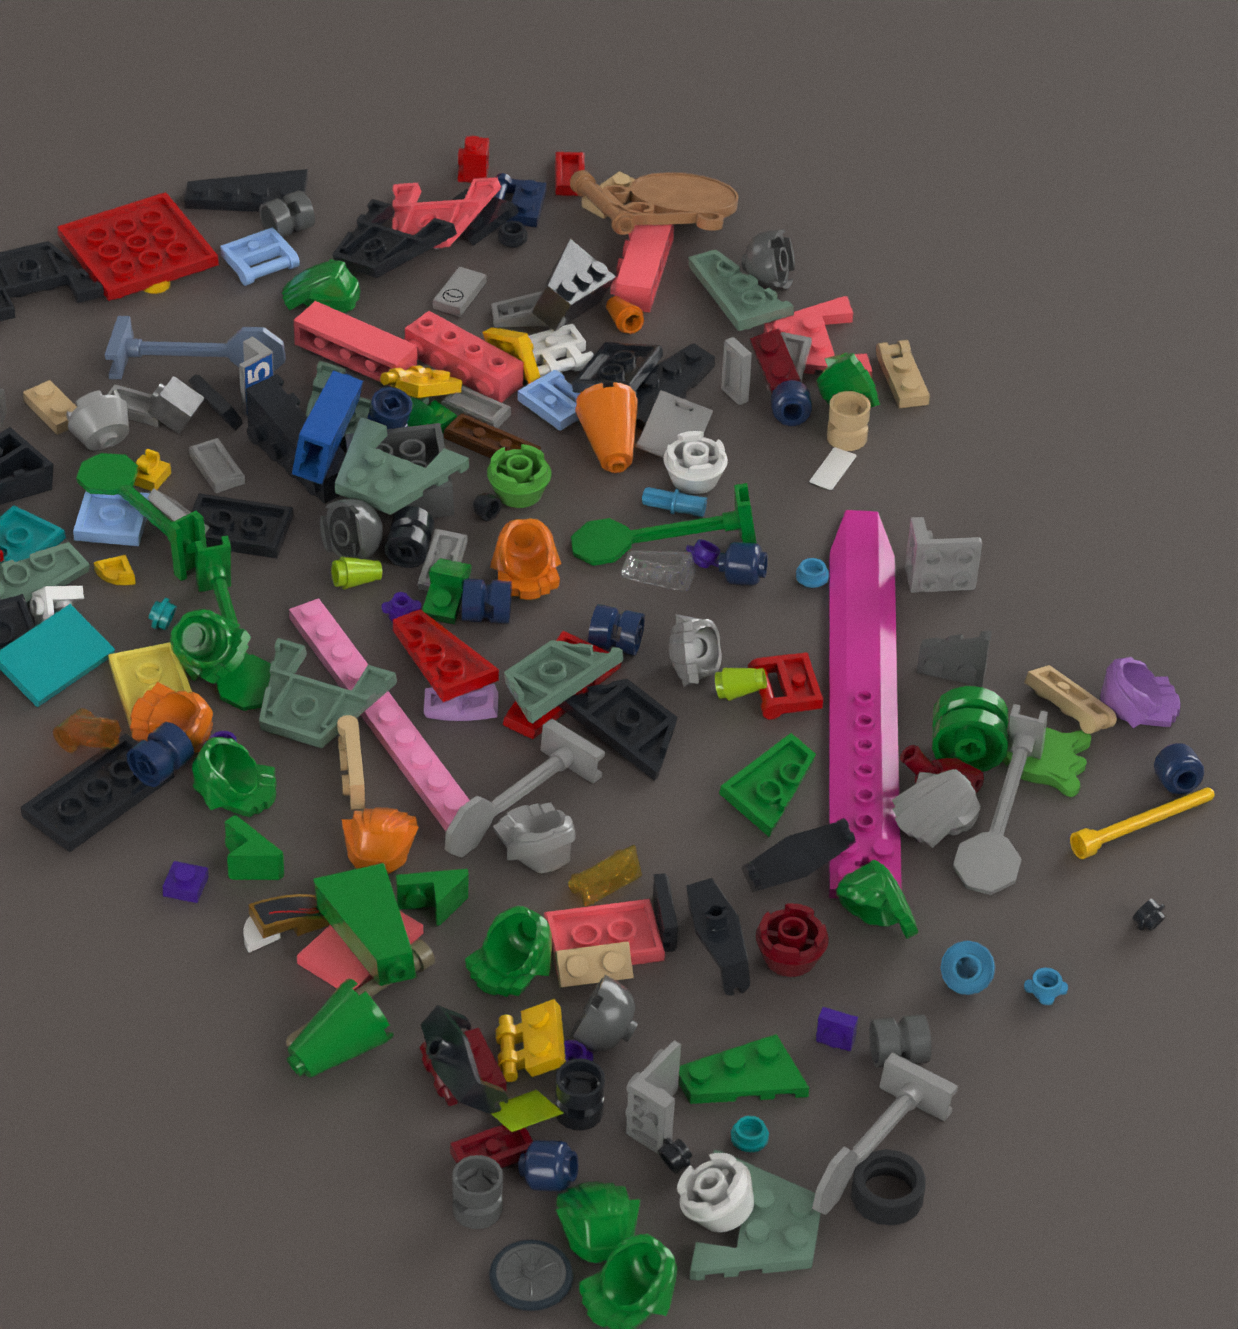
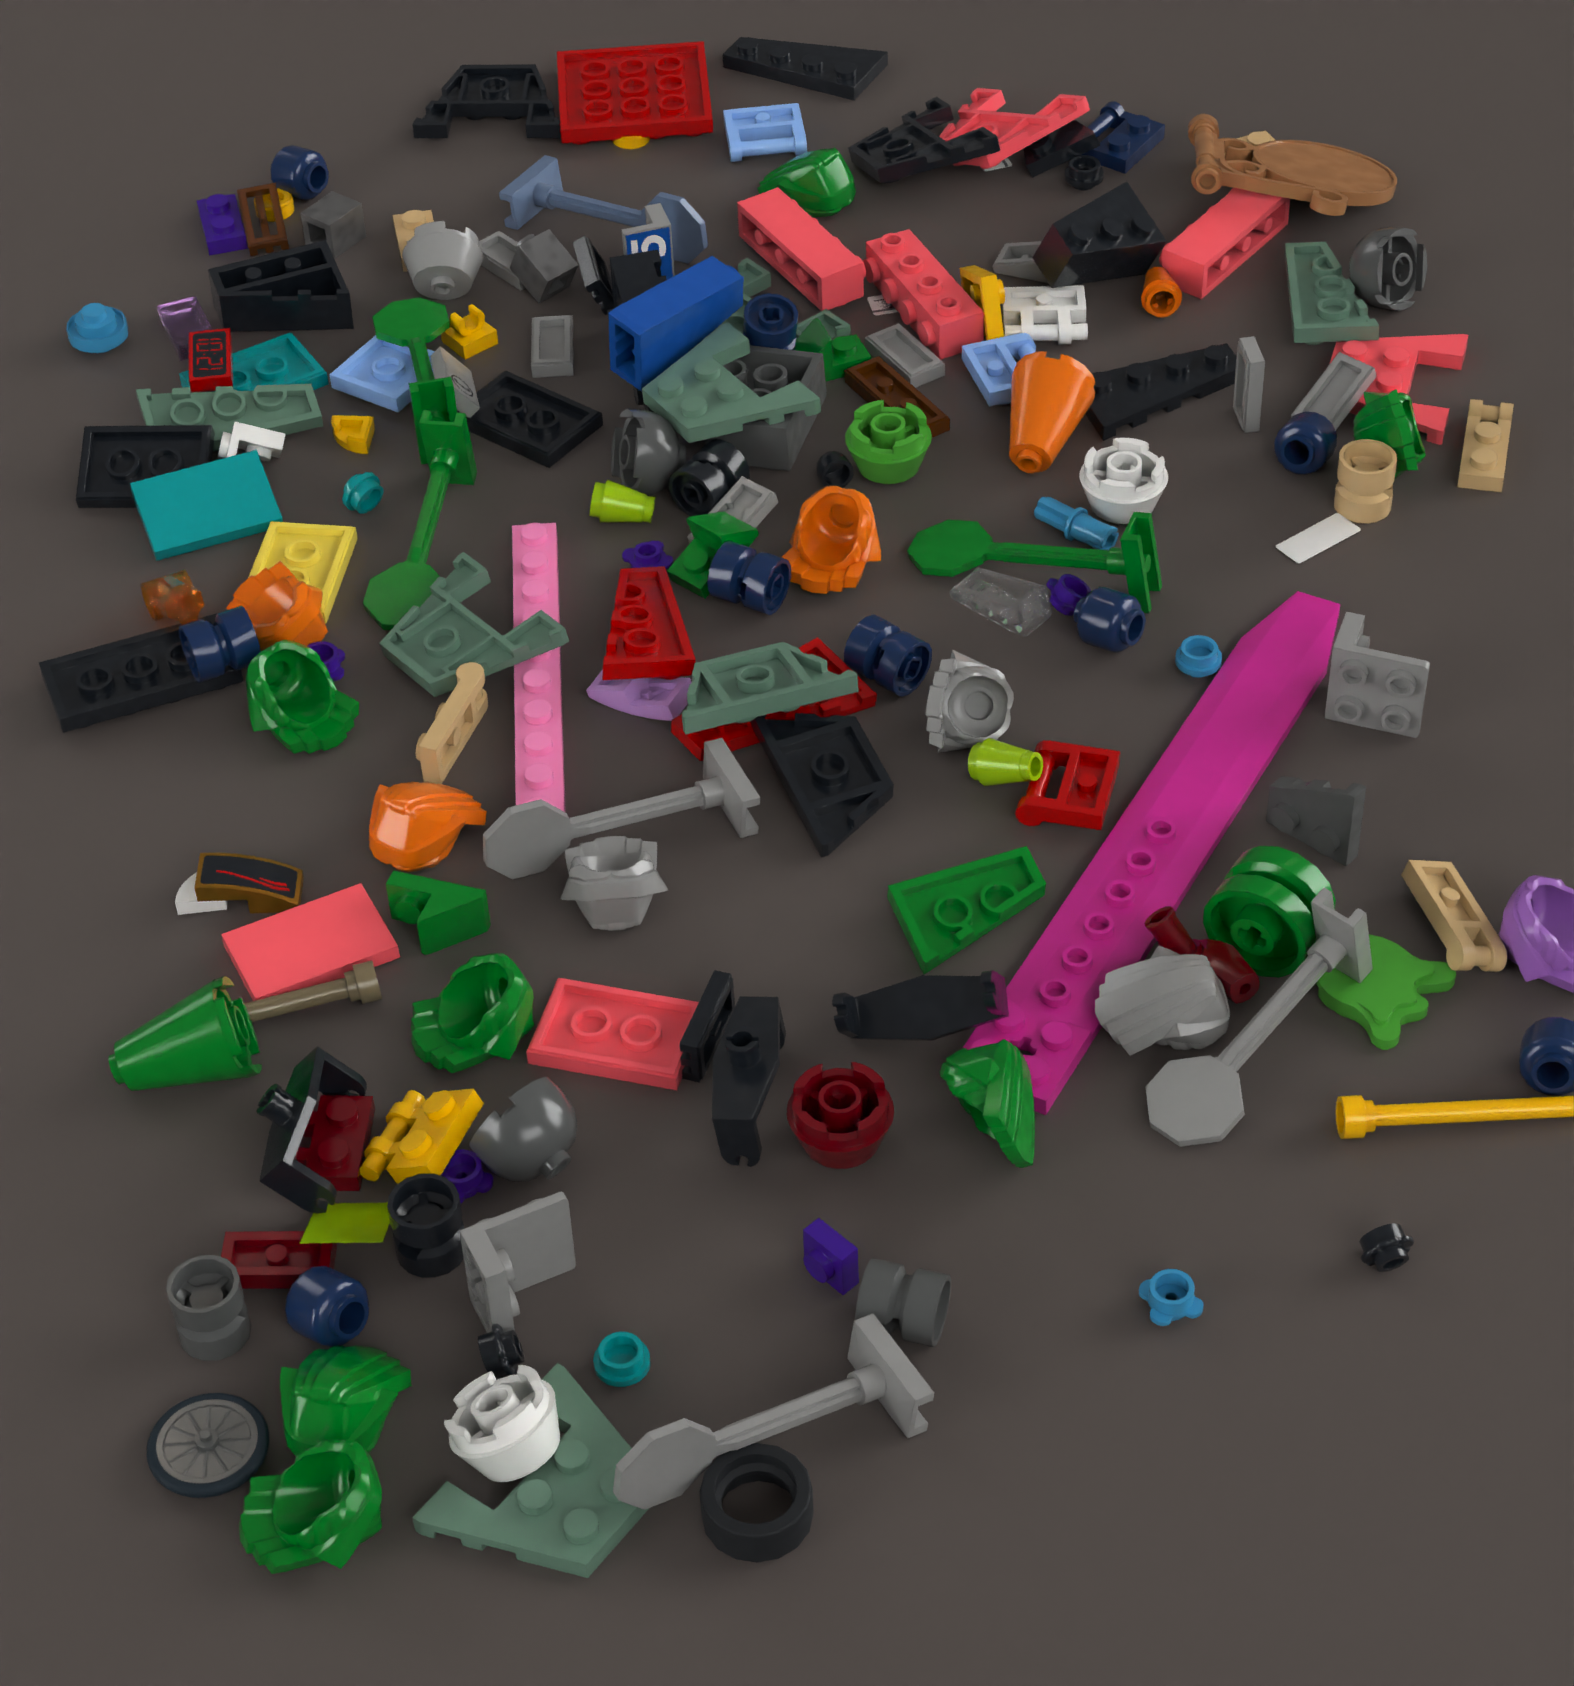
camera: 30 degrees right, 0 degrees up
(185, 882) = (165, 807): dark purple plate -> none
(208, 644) = (373, 534): green hair -> none
(251, 853) = (253, 798): green slope -> none
(289, 214) = (824, 93): dark grey wheel -> none
(368, 920) = (322, 917): green slope -> none
(421, 381) = (845, 306): yellow plate -> none
(459, 291) = (976, 222): light grey tile -> none
(473, 159) = (1092, 77): red brick -> none
(565, 166) = (1220, 108): red tile -> none
(591, 963) = (572, 1063): tan plate -> none
(606, 876) = (669, 956): clear yellow hinge -> none
(618, 363) = (1111, 346): black tile -> none
(669, 419) = (1140, 418): light grey container -> none
(746, 1070) = (672, 1271): green wing -> none
(774, 358) = (1311, 381): dark red plate -> none
(968, 967) = (1066, 1233): dark azure plate -> none

